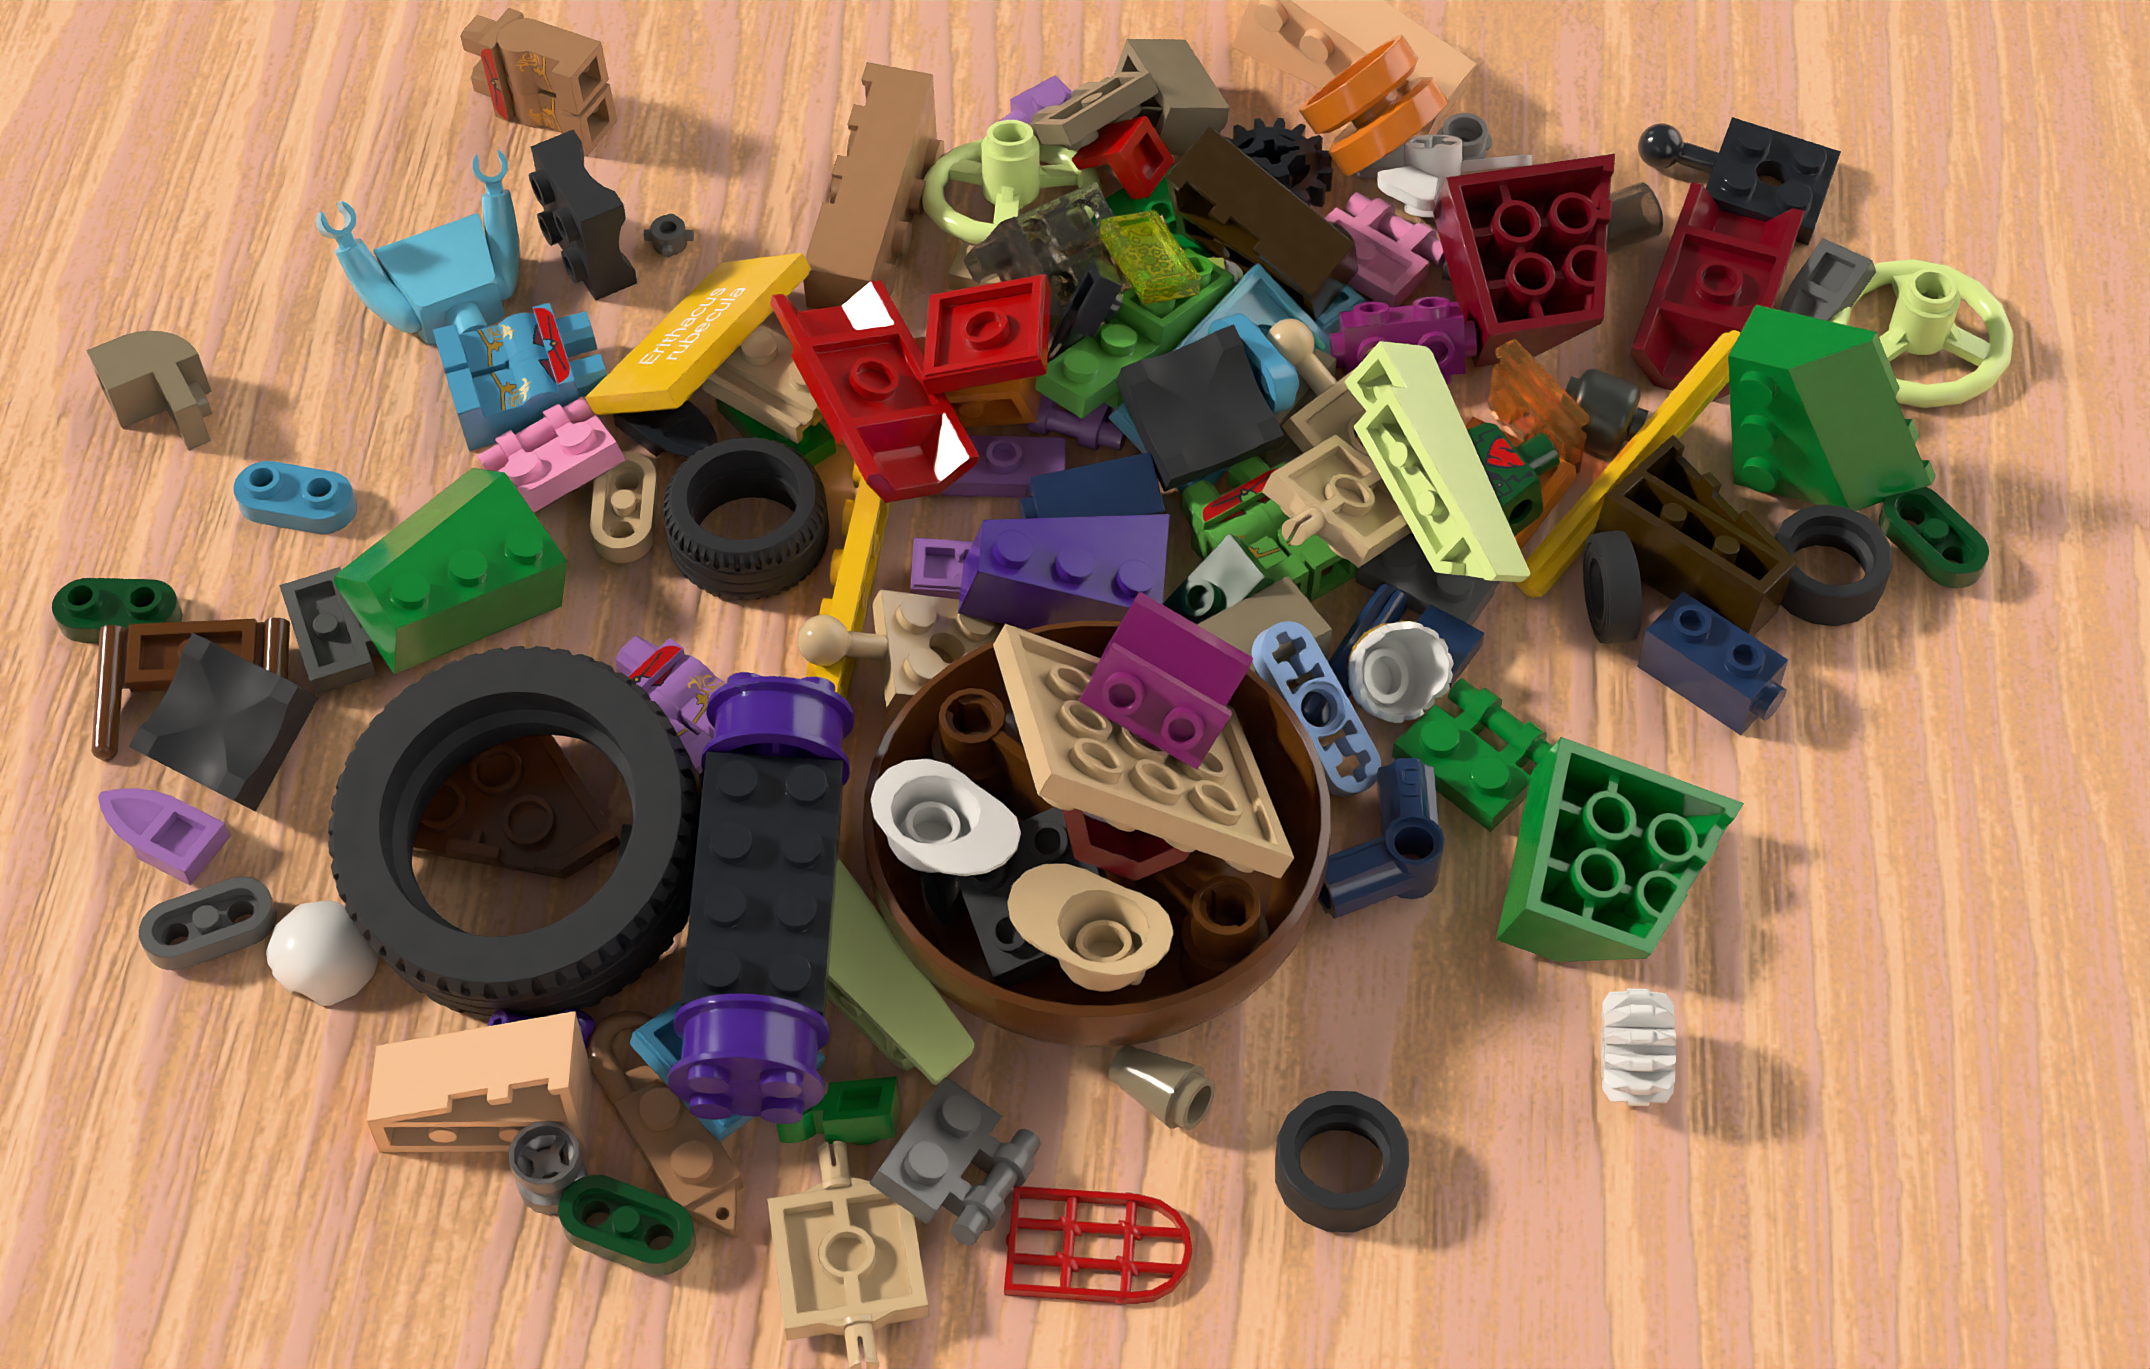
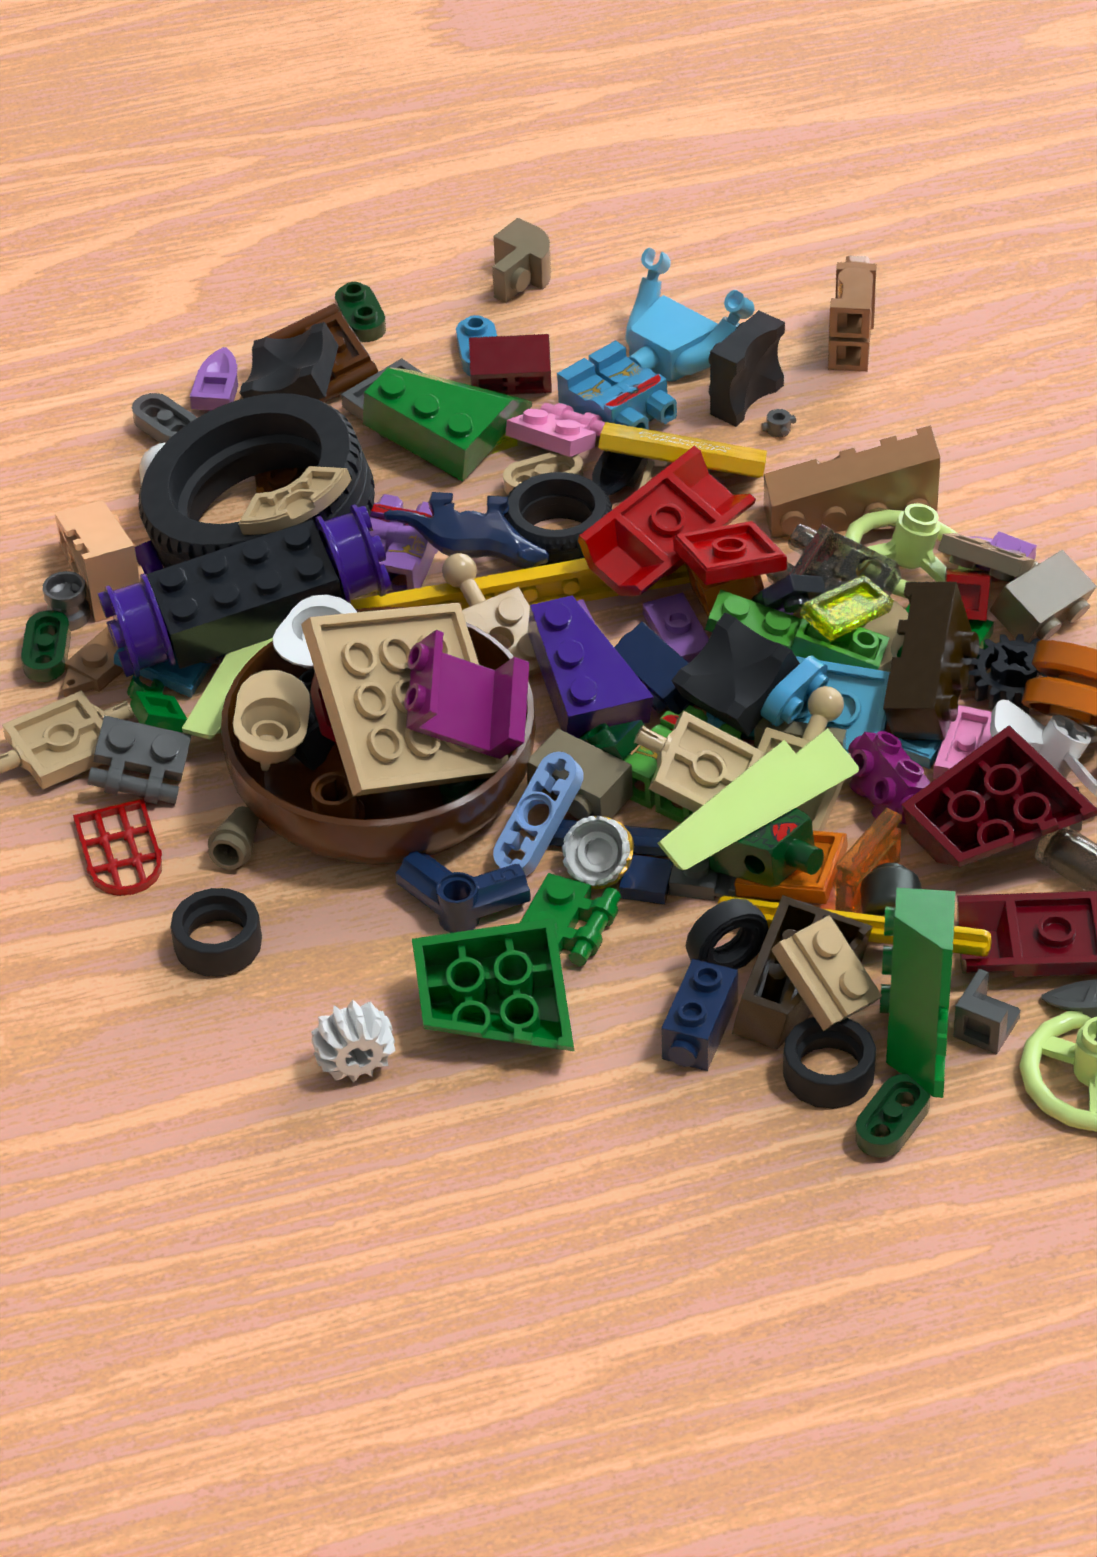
camera: 70 degrees right, 10 degrees down
(385, 464) = (511, 363): none -> dark red hinge
(656, 762) = (295, 502): none -> tan tile
(748, 607) = (472, 531): none -> dark blue animal
(1749, 497) = (826, 972): none -> tan plate

